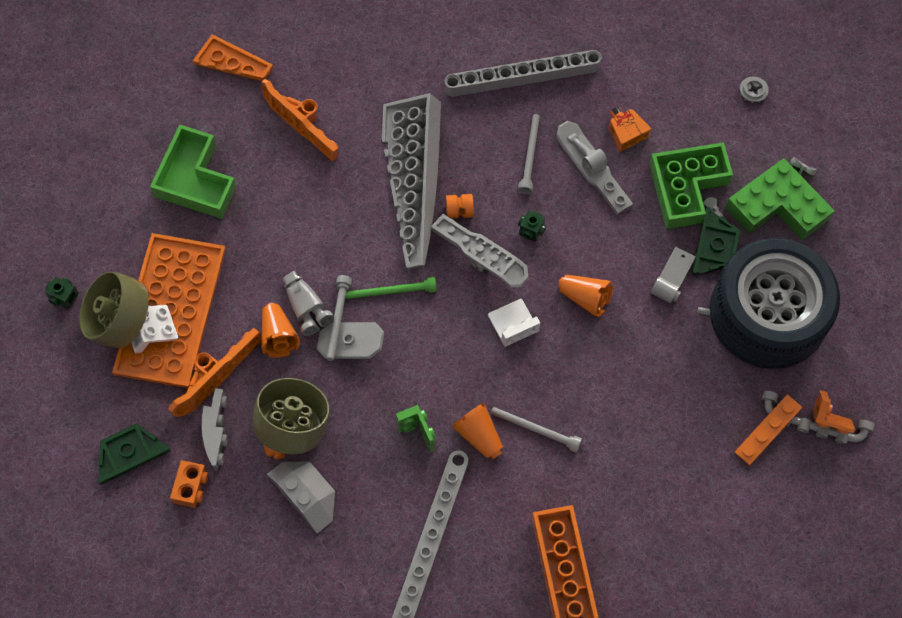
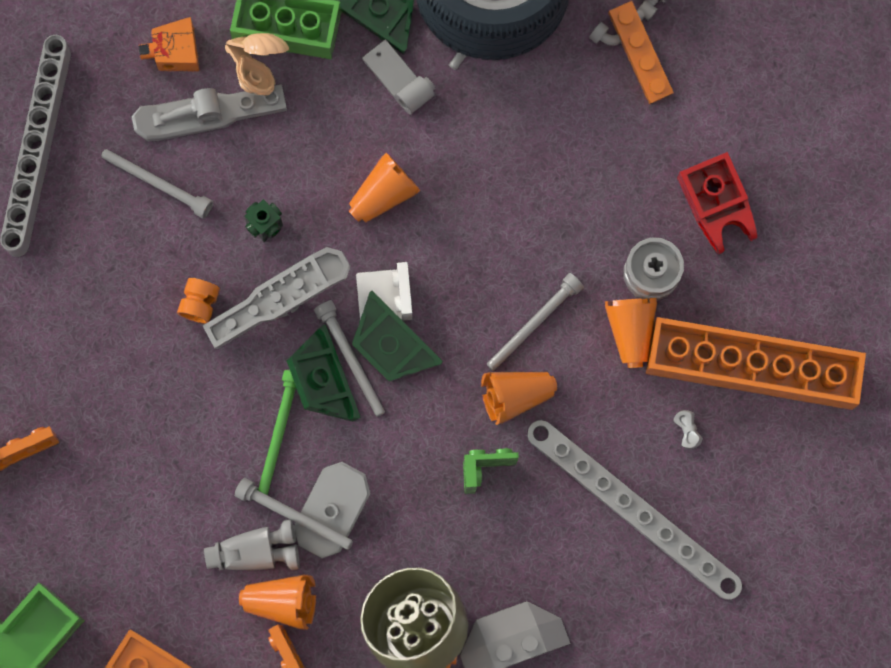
camera: 70 degrees left, 10 degrees up
(413, 156) = (76, 325): light grey wedge -> none
(437, 301) = (321, 378): none -> dark green wing
(481, 336) = (390, 342): none -> dark green wing
(486, 289) = (326, 312): none -> light grey piece
(497, 566) = (691, 437): none -> light grey piece
(560, 492) = (632, 328): none -> orange cone
(615, 484) = (640, 266): none -> light grey wheel
(629, 178) = (251, 73): none -> light nougat animal
(677, 527) = (718, 209): none -> red brick

